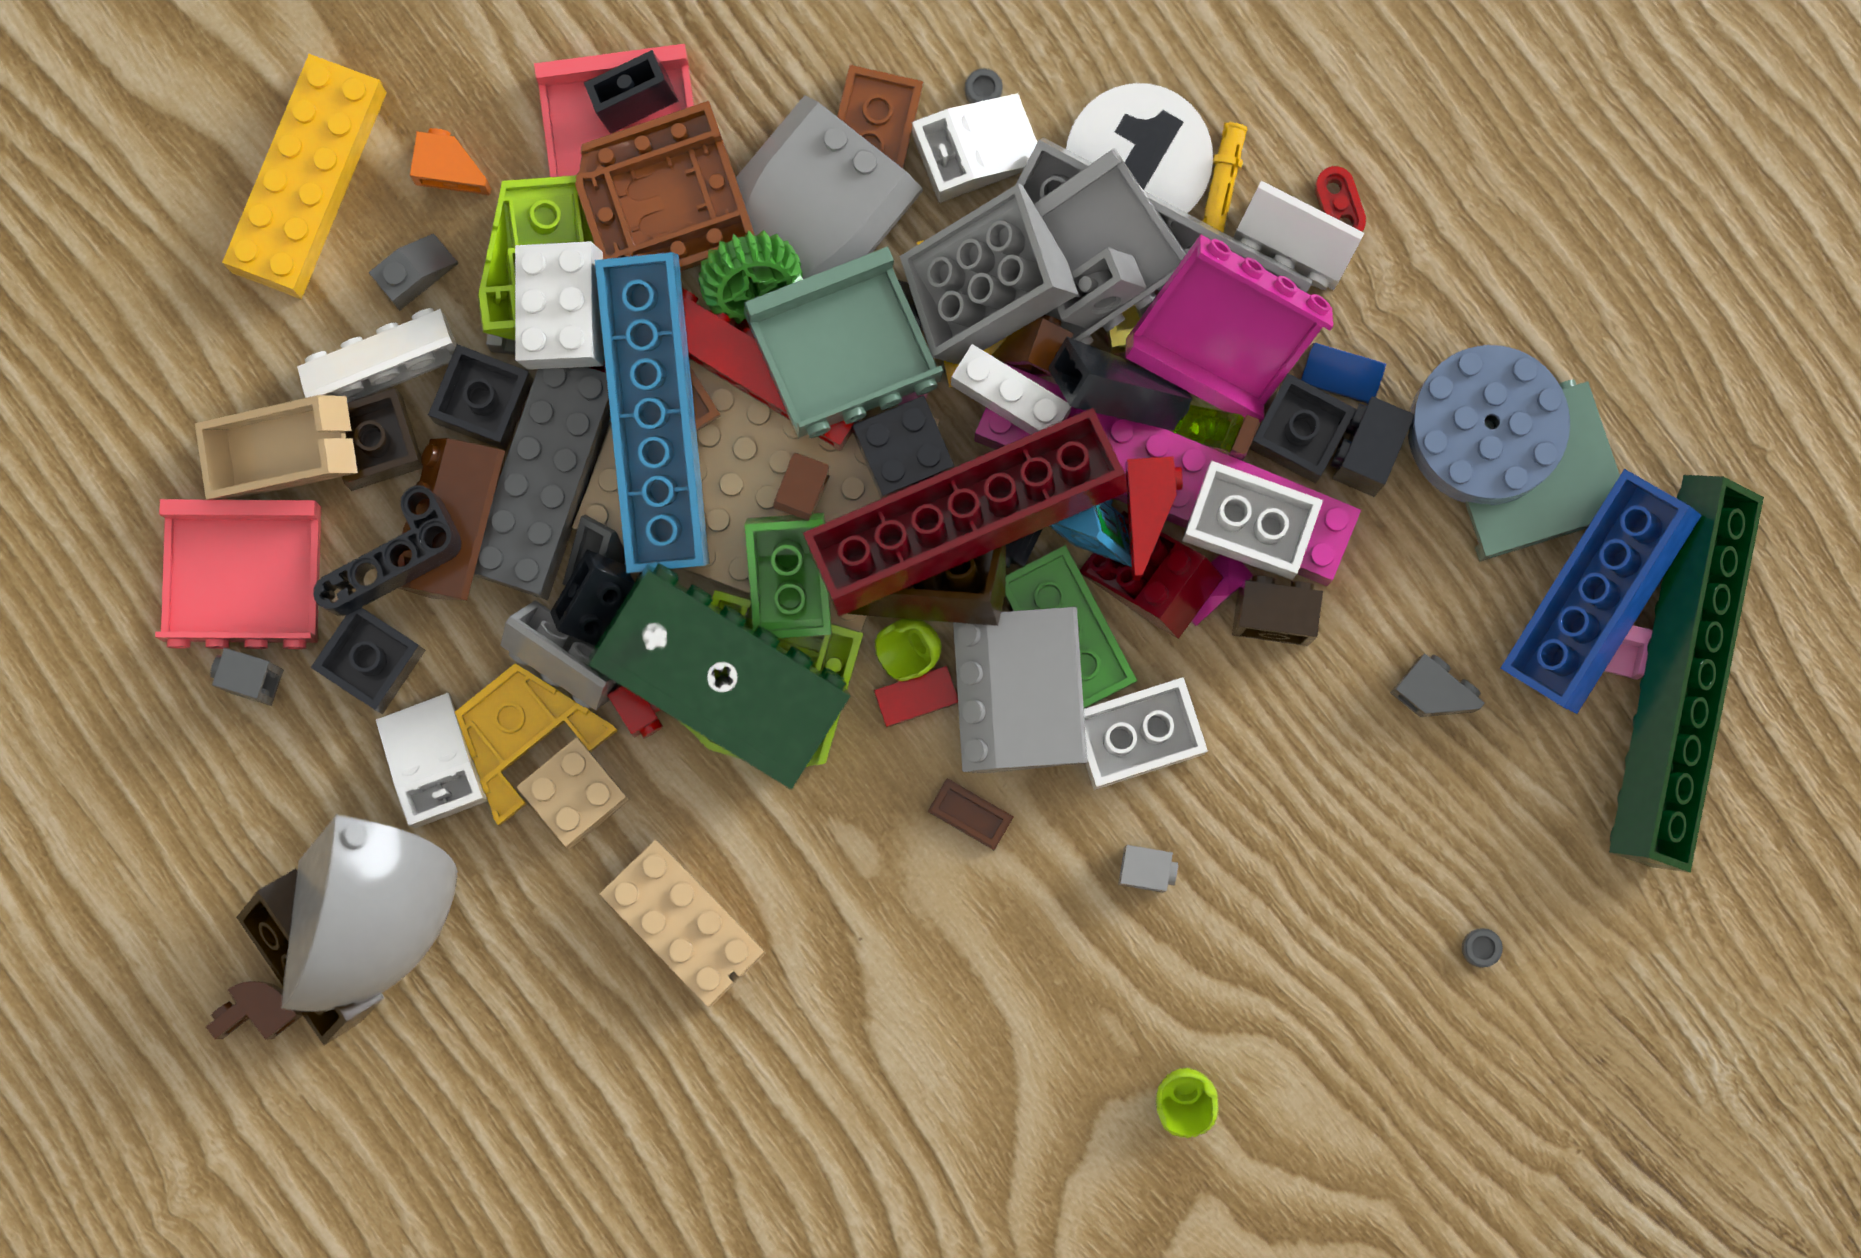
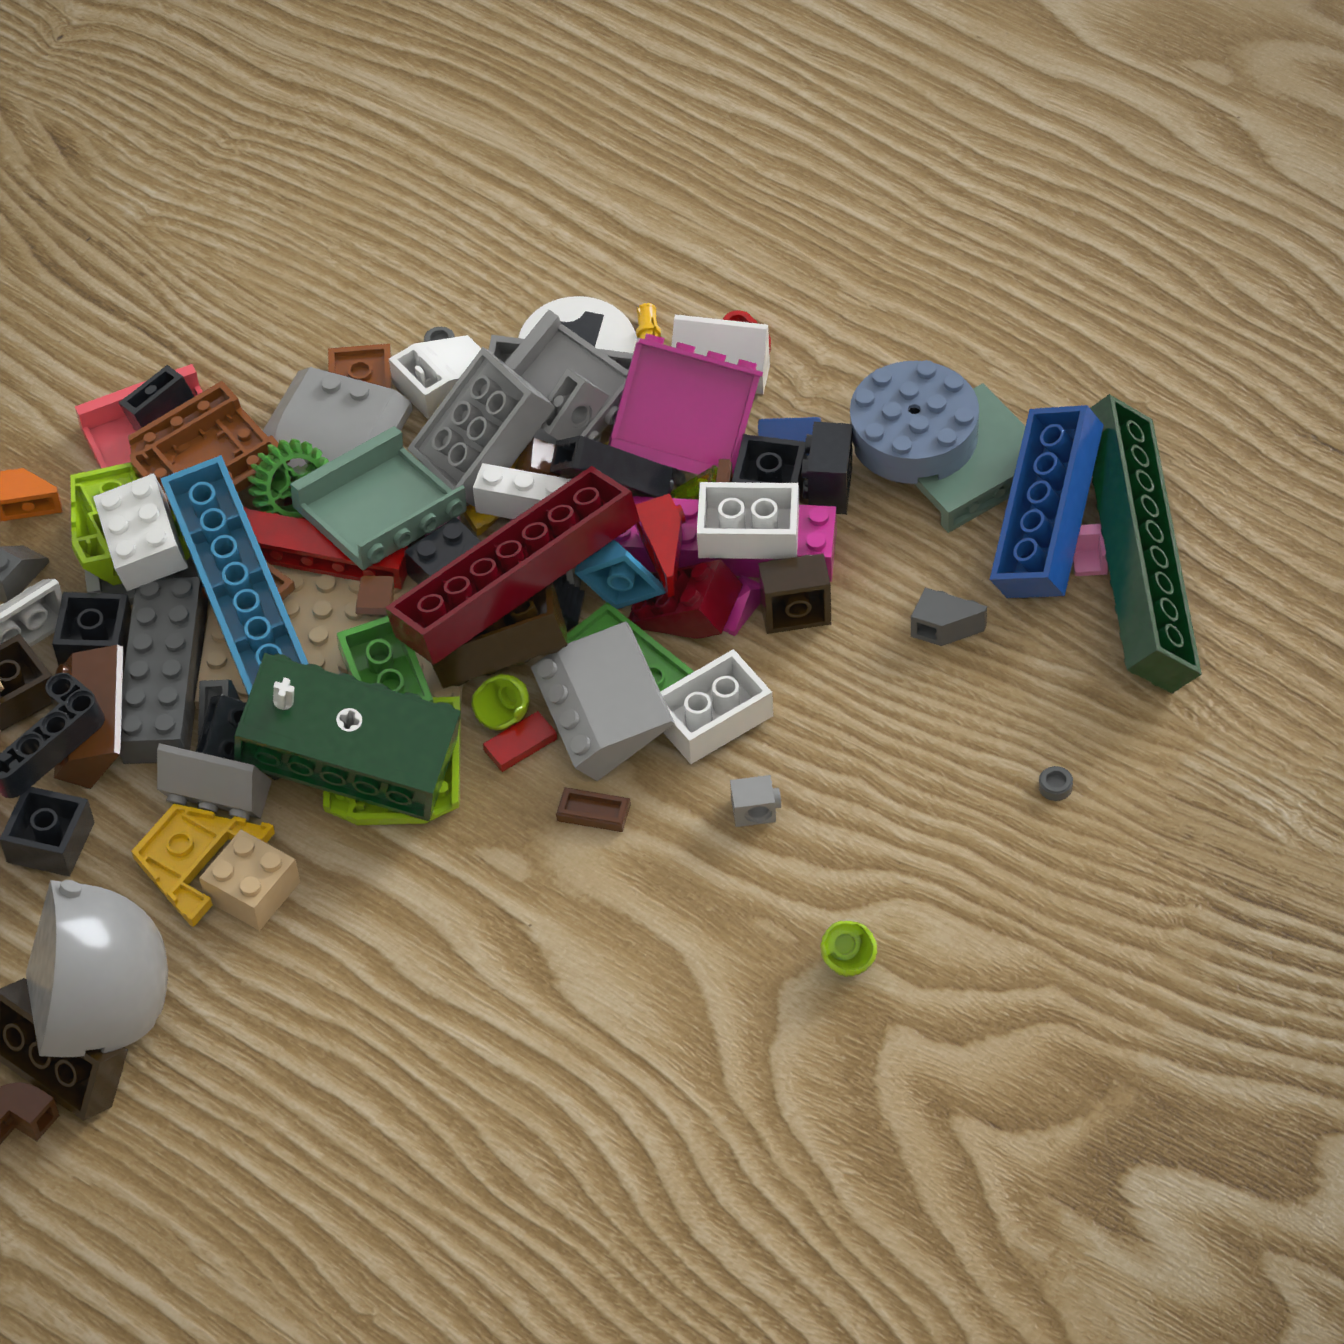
camera: 10 degrees left, 30 degrees down
(430, 761) = (132, 878): white slope -> none
(636, 712) = (285, 808): red brick -> none
(682, 923) = (373, 945): tan piece -> none

